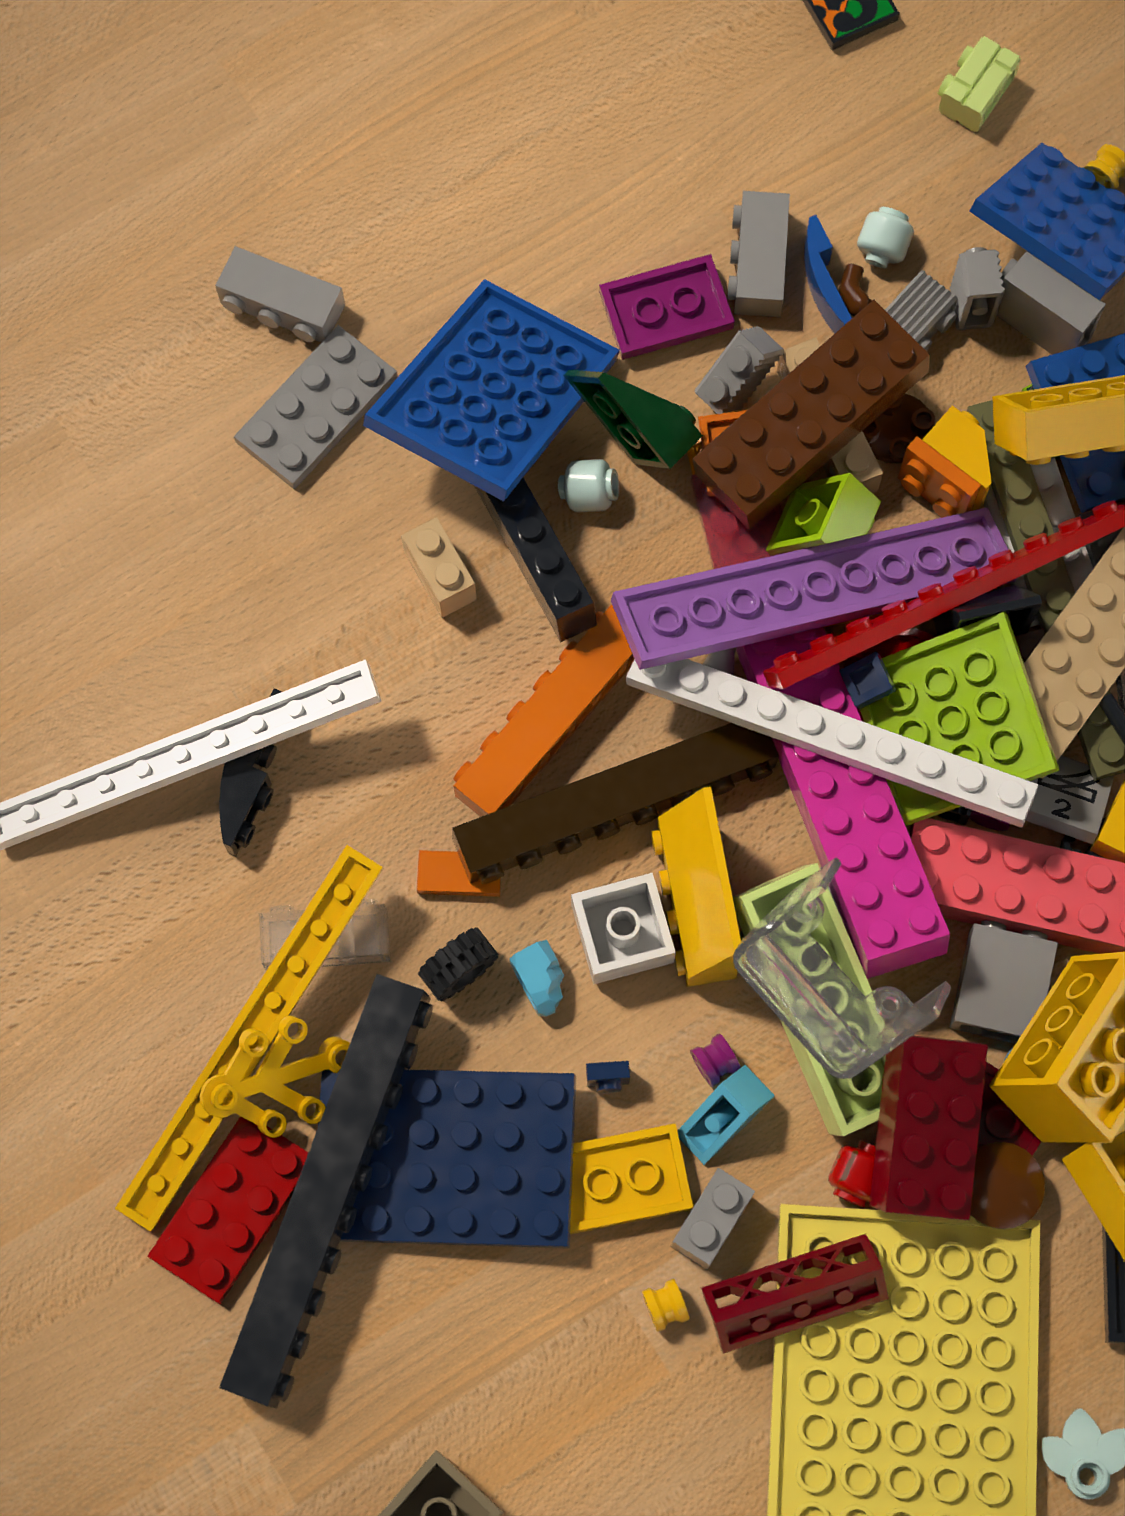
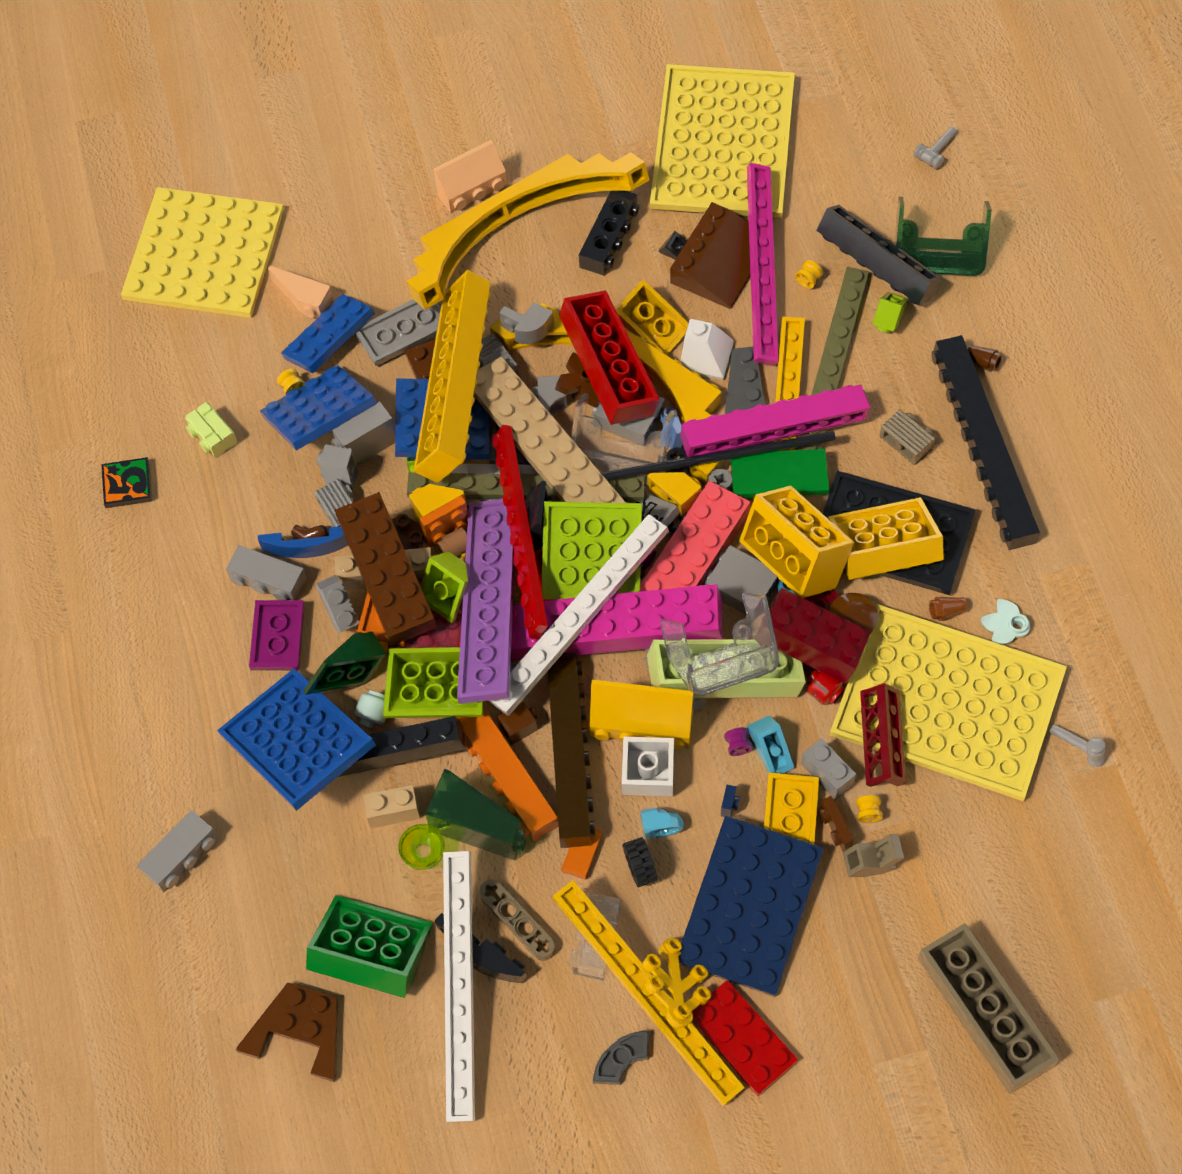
camera: 70 degrees left, 10 degrees down
(87, 558) = (302, 1017): none -> reddish brown wing
(153, 1030) = (620, 1056): none -> dark grey tile
(216, 610) = (368, 946): none -> green slope
(316, 407) = (258, 852): light grey plate -> none
(324, 813) = (514, 922): none -> dark tan beam
(326, 1193) = (754, 972): black brick -> none
(385, 614) = (421, 835): none -> clear neon green piece
(454, 681) = (473, 818): none -> clear green slope
(580, 1332) = (875, 858): none -> dark tan brick
(635, 1244) = (840, 833): none -> reddish brown plate
(636, 711) = (519, 723): none -> reddish brown brick
(640, 538) = (425, 684): none -> lime slope
(867, 680) = (553, 587): dark blue plate -> none
(885, 237) = (284, 506): light aqua head -> none
(909, 507) = (454, 542): none -> medium nougat brick
(1078, 1343) = (946, 607): none -> dark orange cone

